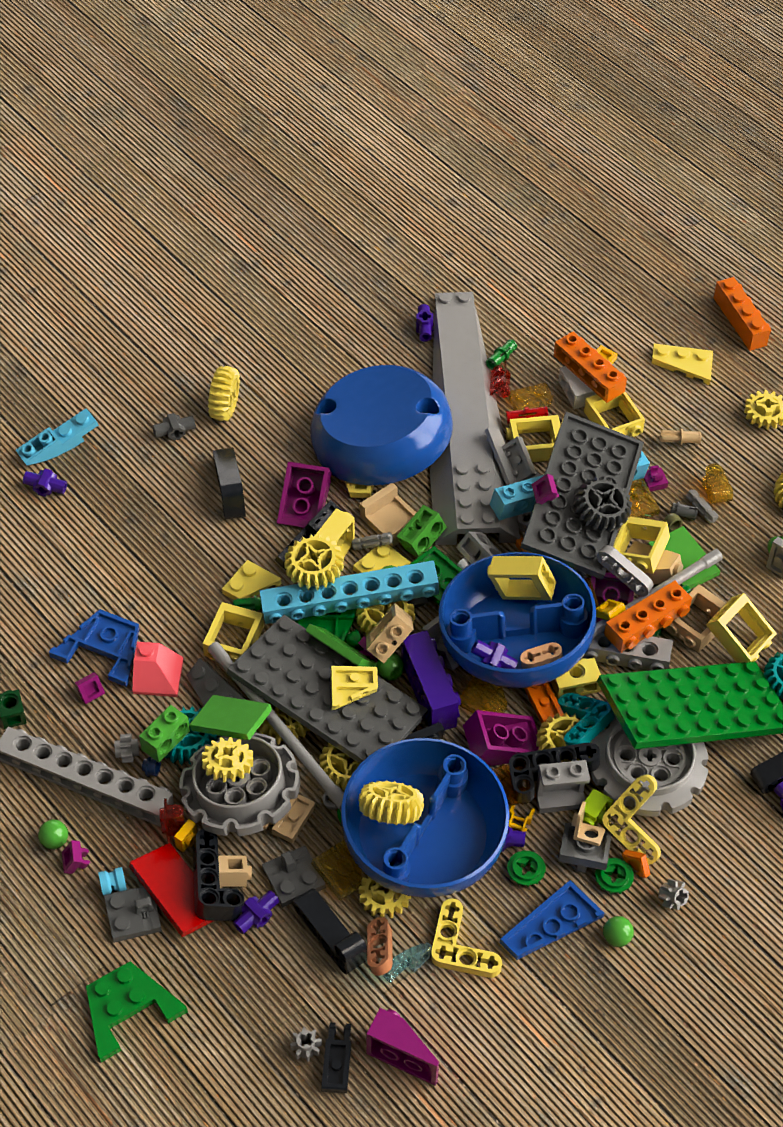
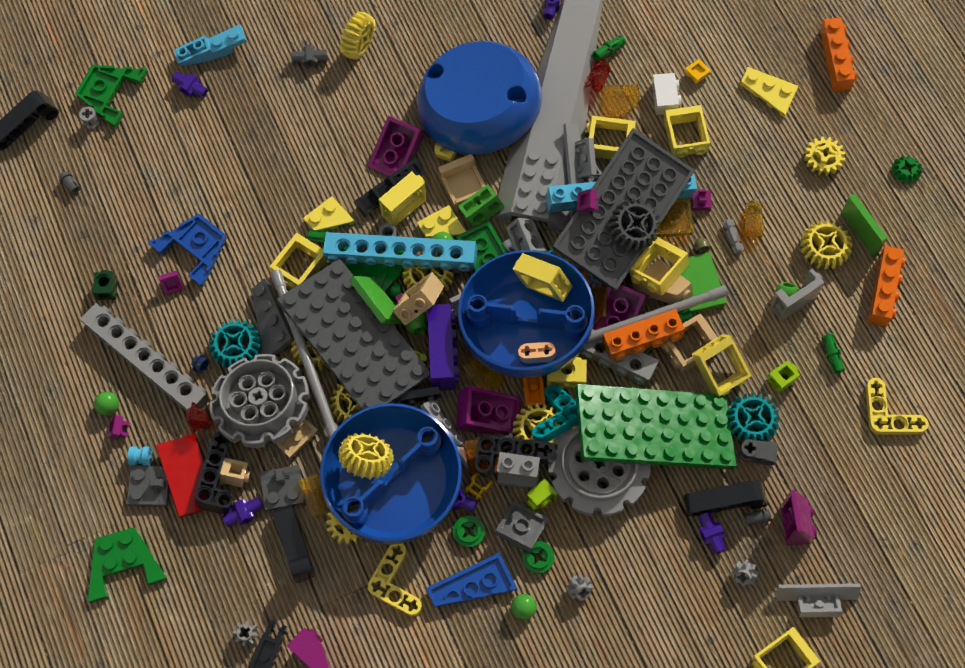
camera: 20 degrees right, 15 degrees up
(126, 748) = (184, 343): light grey gear -> none
(156, 670) = (228, 279): coral slope -> none
(164, 733) = (212, 342): bright green brick -> none
(186, 835) = (207, 432): yellow plate -> none
(227, 759) = (248, 379): light yellow gear -> none
(229, 483) = (337, 120): black beam -> none
(230, 717) = (267, 342): bright green tile -> none
(314, 562) = (389, 219): light yellow gear -> none
(351, 684) = (371, 338): light yellow wing -> none
(372, 541) = (439, 204): light grey axle -> none
(377, 966) = (327, 577): nougat beam -> none
(411, 958) = (352, 584): clear light blue slope -> none
(494, 654) = (496, 343): dark purple axle -> none
(539, 411) = (621, 114): red pin -> none
(581, 828) = (522, 509): tan bracket -> none
(590, 366) = (678, 81): orange brick -> none
(609, 609) = (612, 321): yellow tile -> none
(614, 561) = (635, 289): light grey beam -> none
(625, 814) = (561, 511): light yellow beam -> none
(637, 861) = (561, 550): orange tile -> none
(680, 436) = (738, 164): tan axle -> none
(684, 510) = (715, 237): dark grey pin -> none

